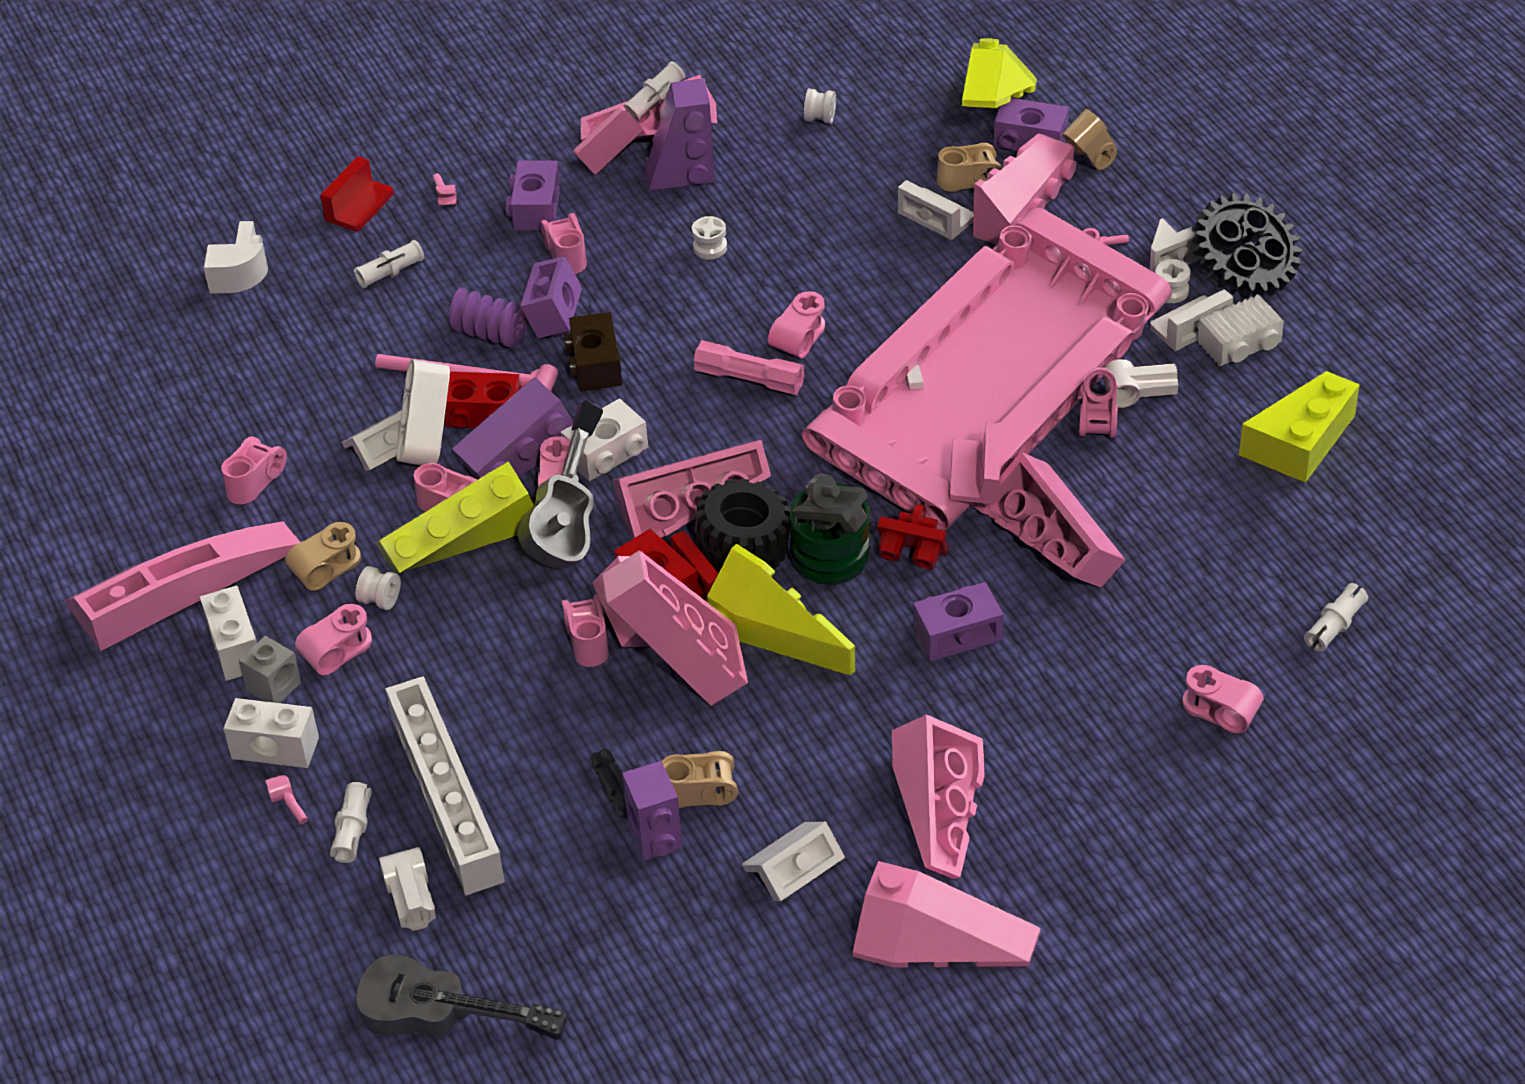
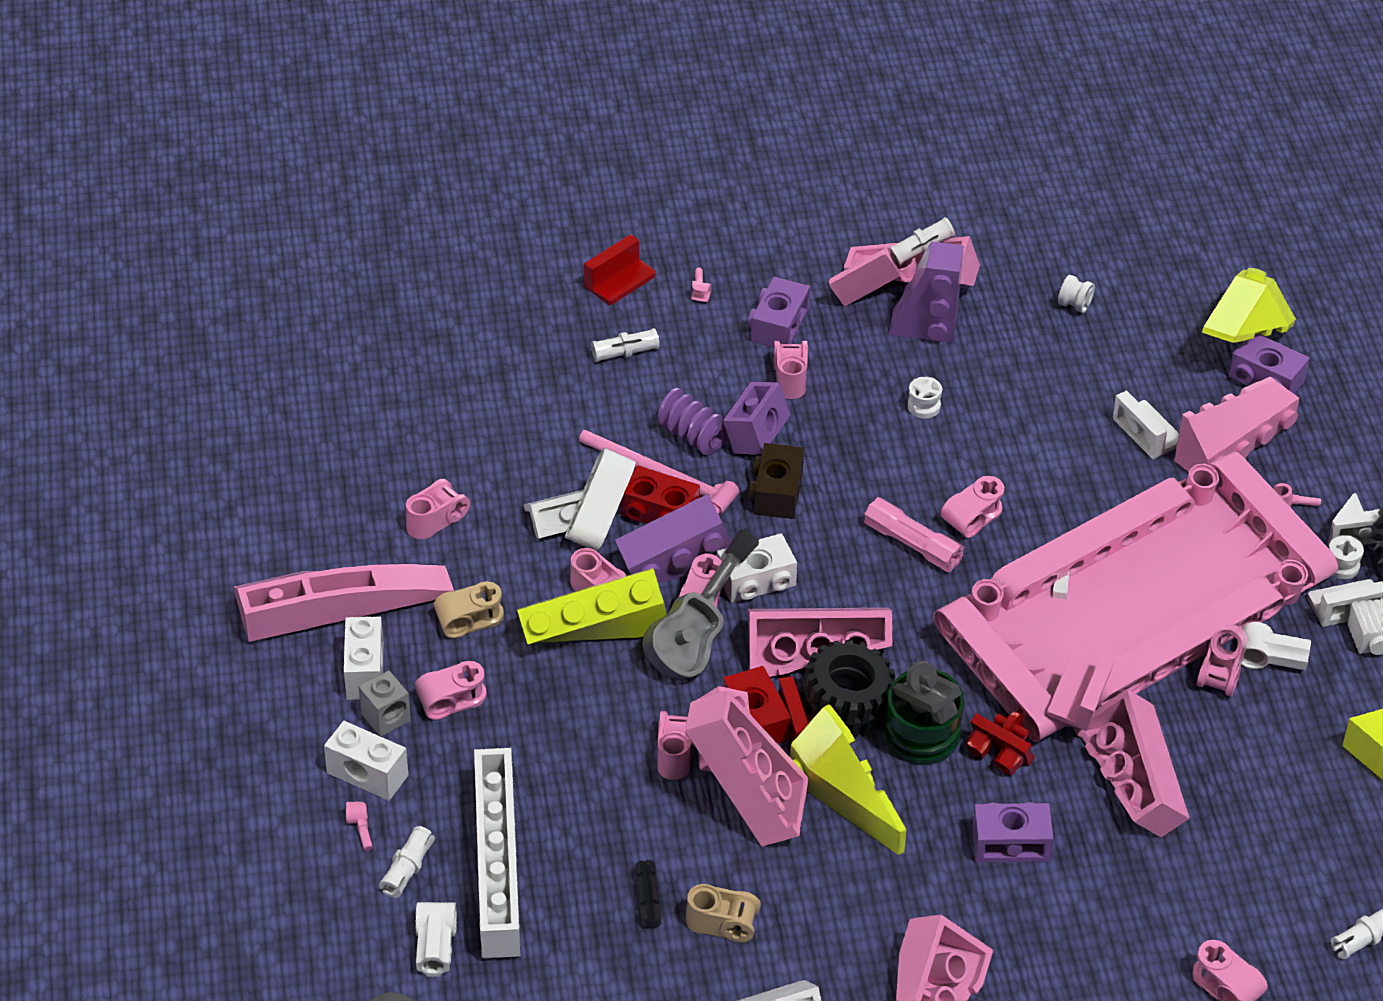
camera: 15 degrees right, 0 degrees up
(238, 265) = (489, 311): white brick -> none
(378, 588) = (505, 652): white wheel -> none
(652, 810) = (668, 930): medium lavender brick -> none
(965, 165) = (1191, 389): tan piece -> none
(1091, 140) = (1319, 397): tan piece -> none

